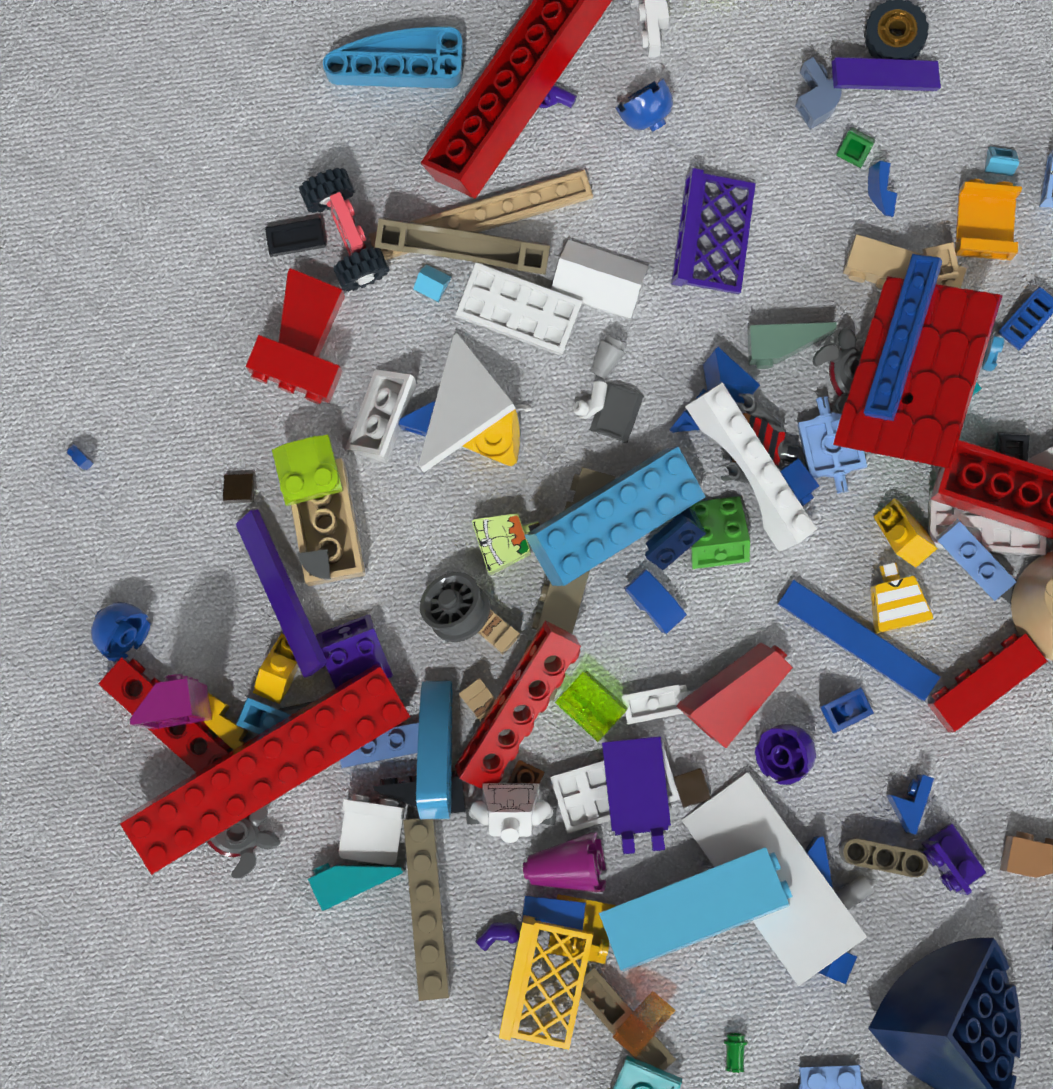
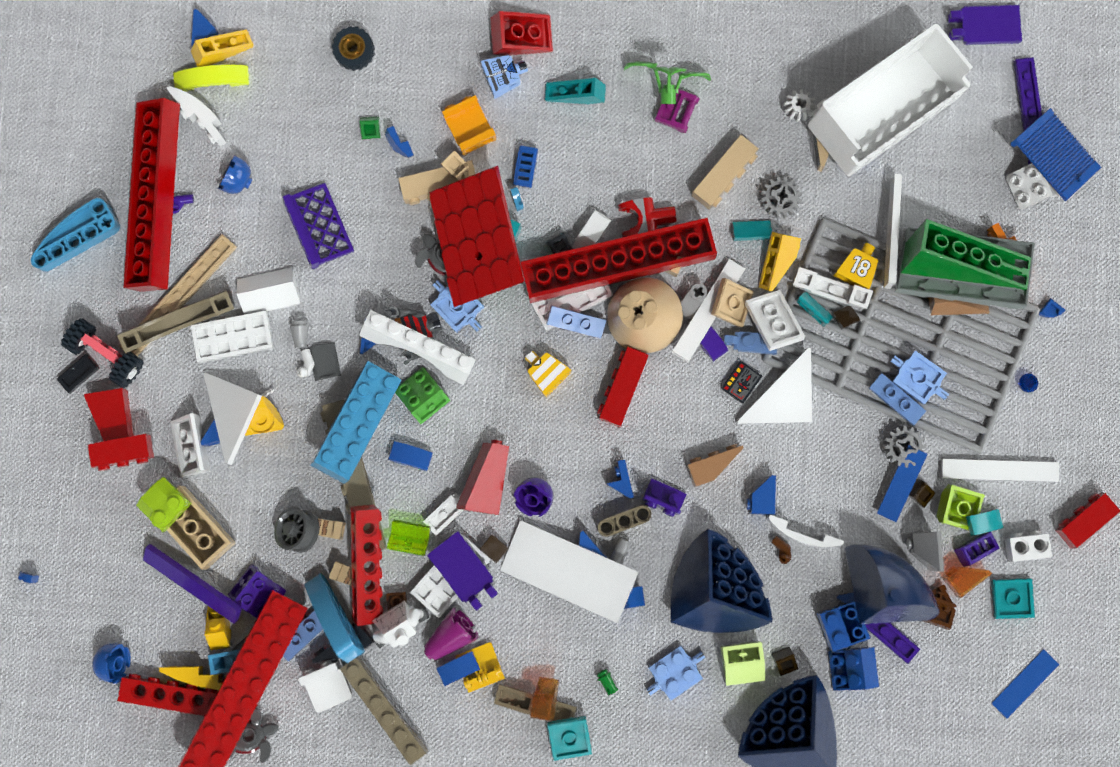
camera: 30 degrees left, 0 degrees up
(173, 703) = (164, 686): magenta slope -> none
(238, 488) = (132, 538): dark brown slope -> none
(316, 563) = (201, 554): dark grey tile -> none
(346, 881) = (326, 727): teal slope -> none
(431, 282) = (173, 352): medium azure slope -> none
(498, 931) = (433, 698): dark purple arm -> none
(502, 540) = (301, 475): yellowish green torso -> none
(520, 976) = (459, 715): yellow fence -> none
(674, 539) = (398, 414): dark blue bracket -> none
(695, 909) = (534, 616): medium azure brick -> none
(722, 369) = (375, 302): blue slope -> none
(778, 342) = (392, 265): sand green slope -> none
(800, 481) = (450, 338): blue brick -> none
(822, 99) = (334, 113): sand blue brick -> none
(846, 710) = (554, 451): blue slope -> none
(858, 640) = (538, 407): blue tile -> none
(885, 74) = (361, 76): dark purple tile -> none
(903, 337) = (456, 222): blue tile -> none
(905, 533) = (527, 331): yellow slope -> none
(1001, 161) = (457, 86): medium azure slope -> none

